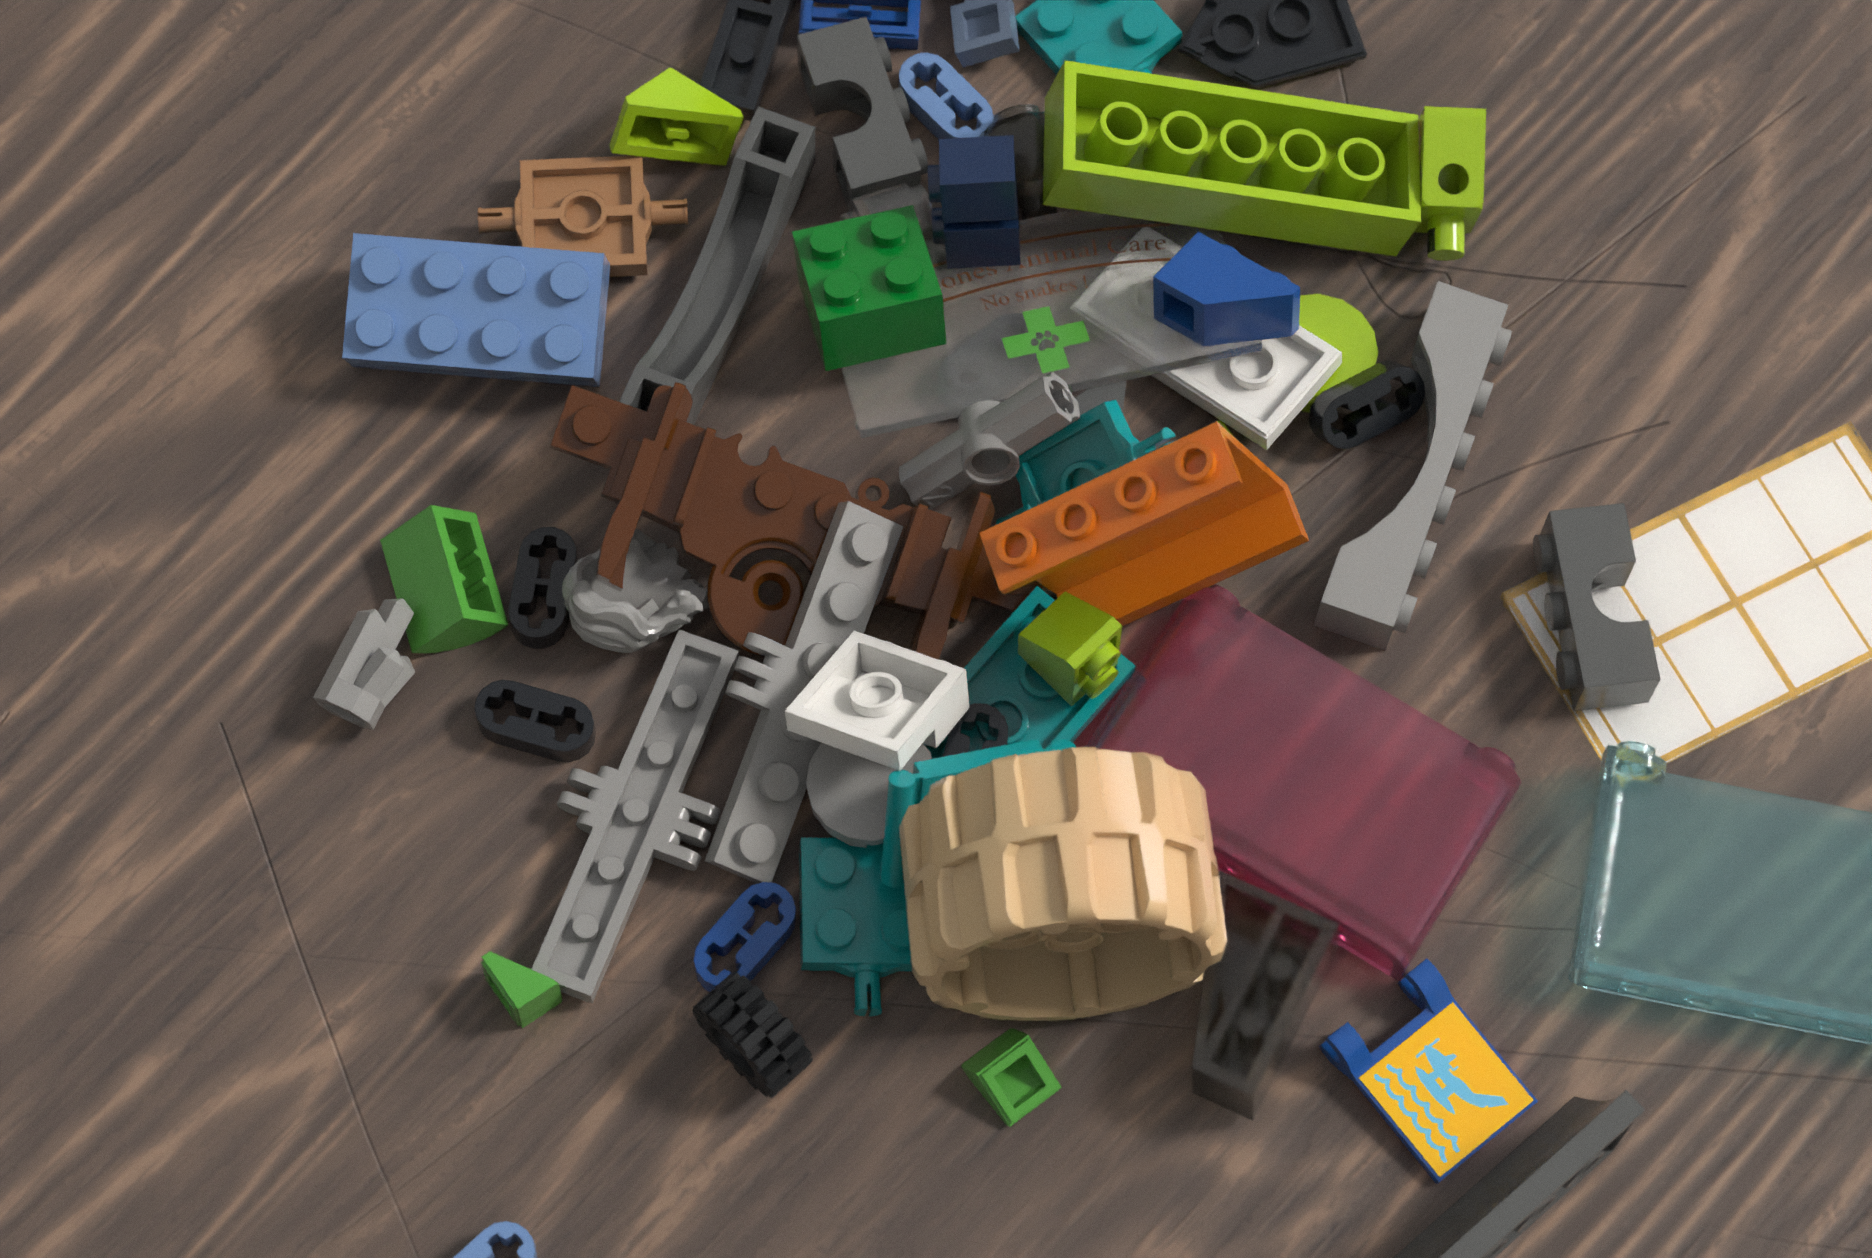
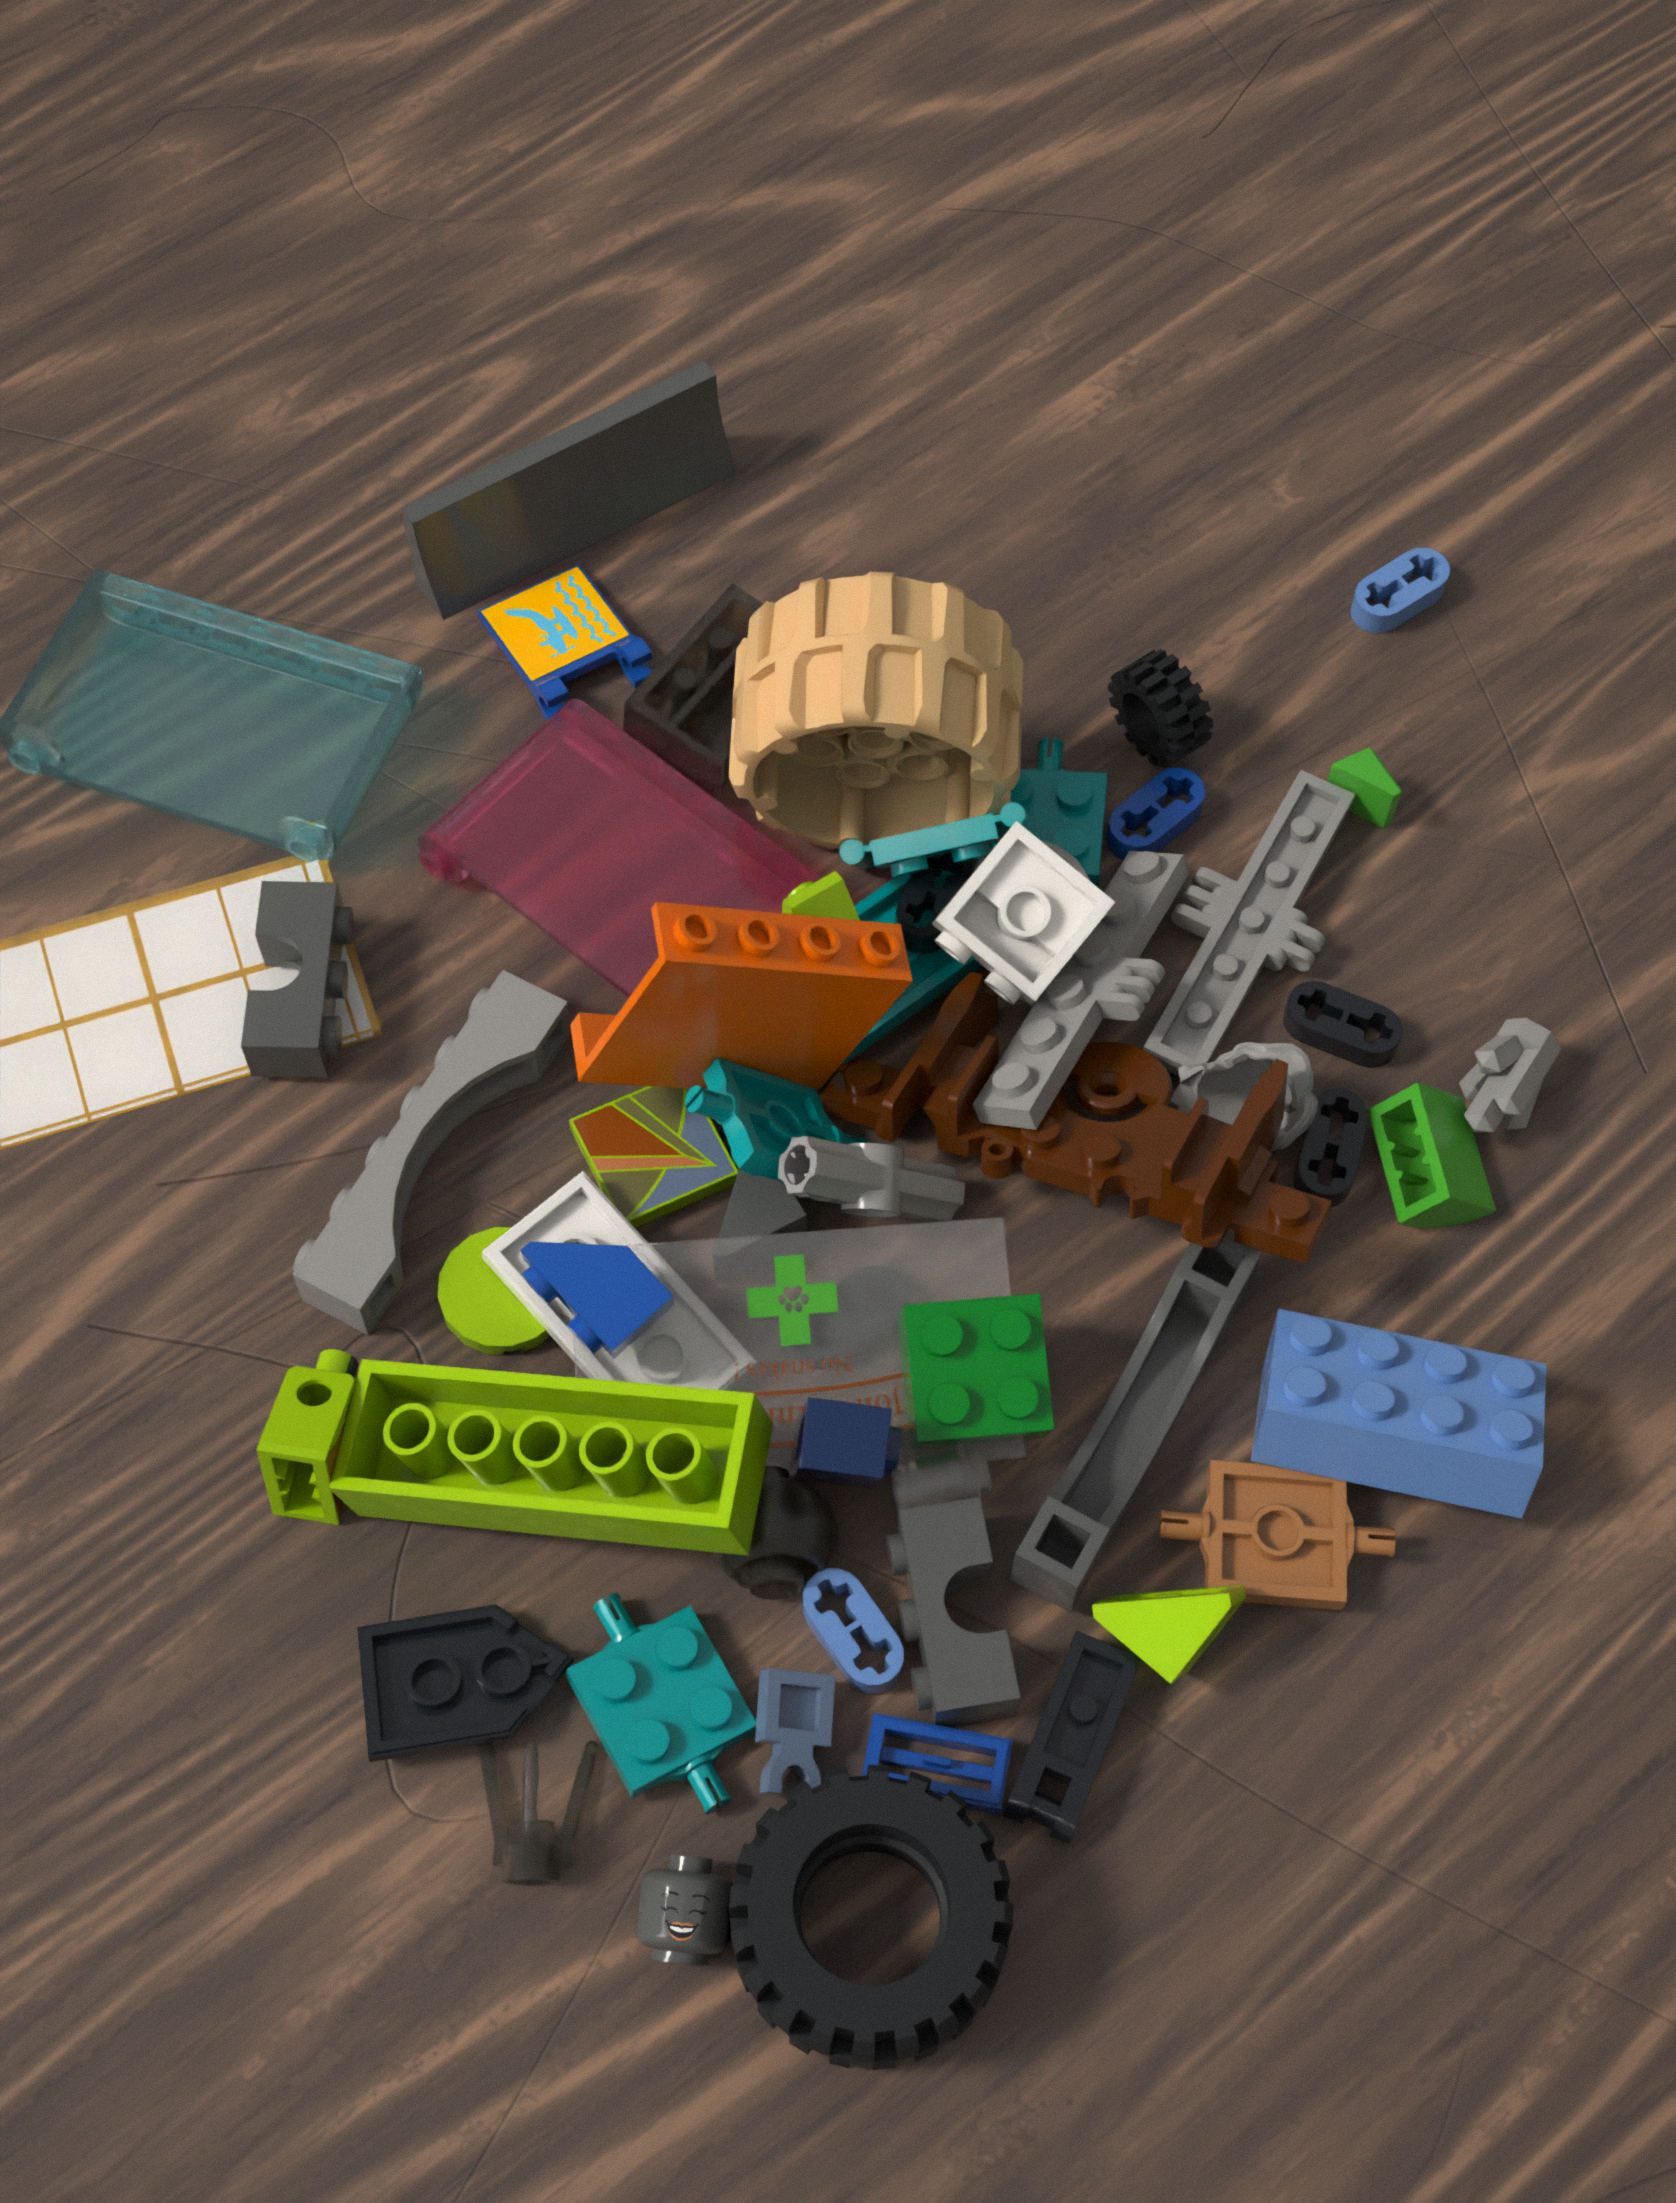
camera: 170 degrees left, 5 degrees down
(1362, 396) = (466, 1215): black beam -> none

